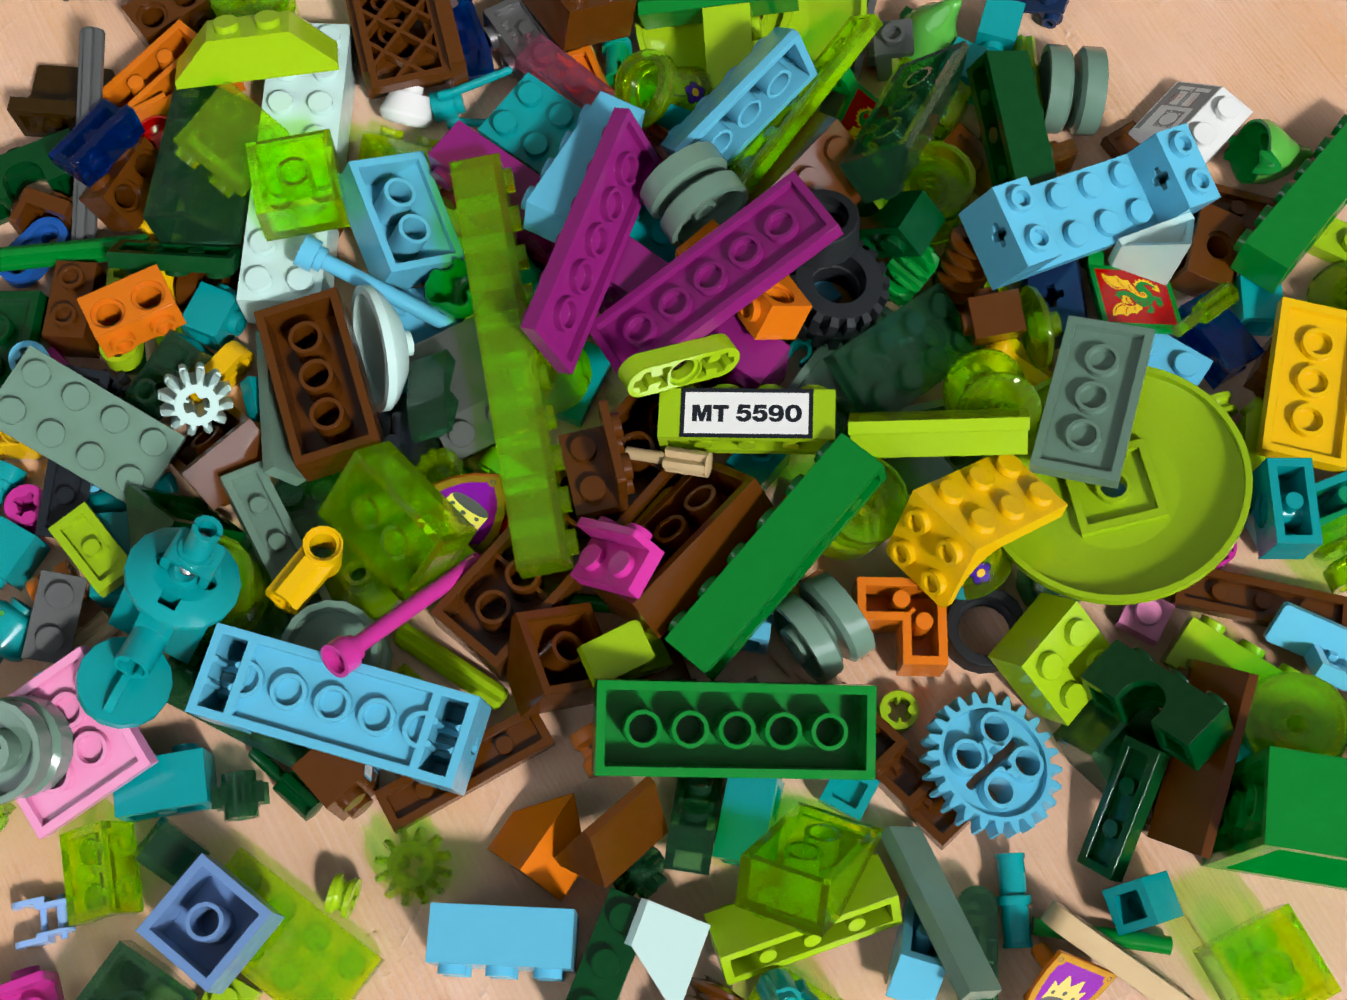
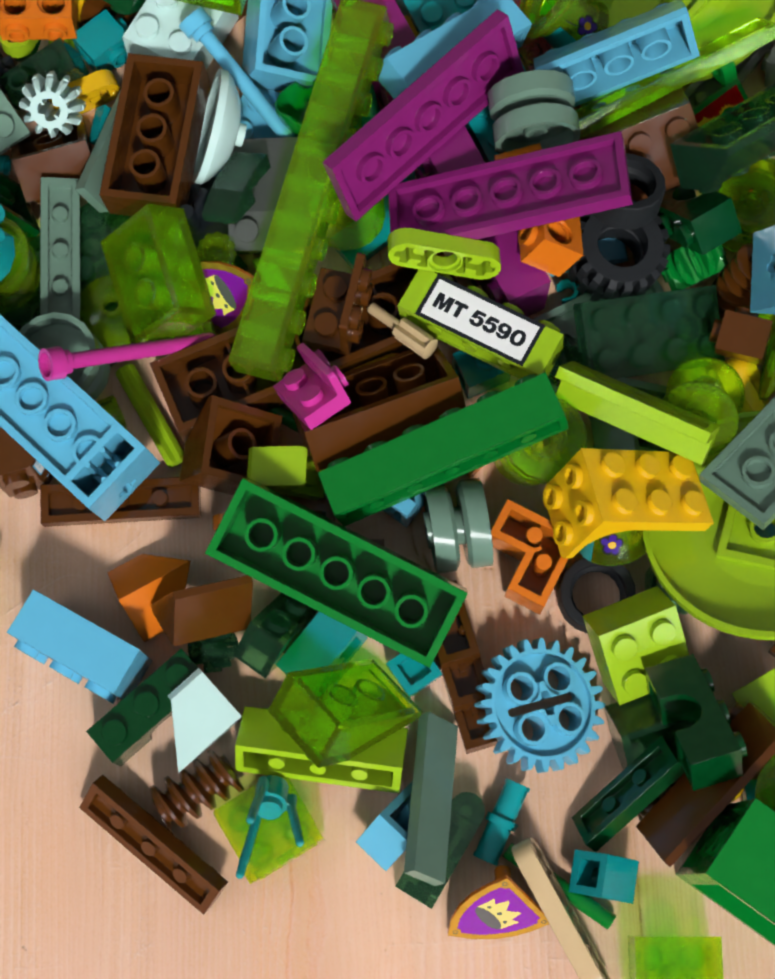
camera: 30 degrees right, 5 degrees up
(305, 571) = (66, 285): yellow piece -> none
(399, 860) = (51, 568): clear neon green gear -> none
(911, 713) = (500, 630): lime bush -> none
(1145, 620) = (740, 652): bright pink plate -> none

